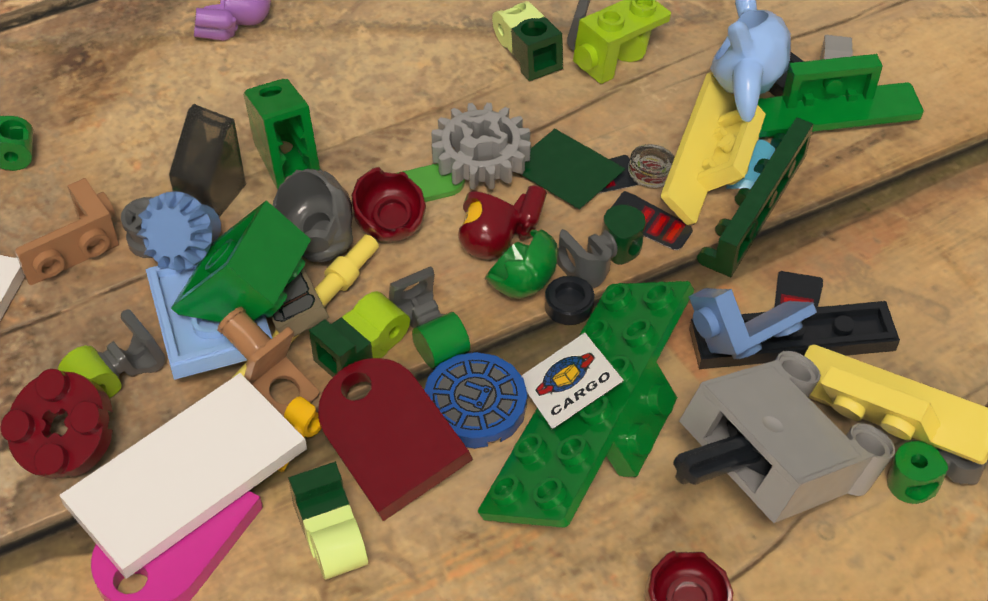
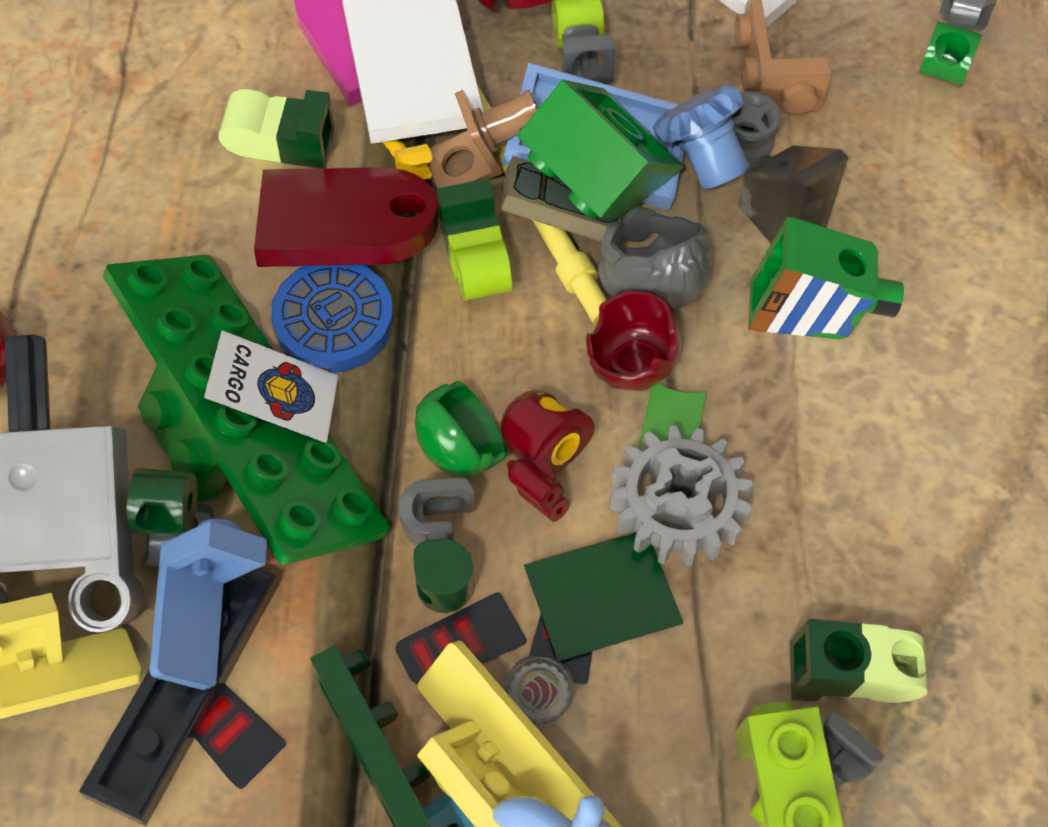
camera: 120 degrees right, 10 degrees up
(433, 333) = (427, 314): leg -> none
(569, 300) = (392, 469): black tile -> none
(708, 359) = (163, 507): none -> dark green leg

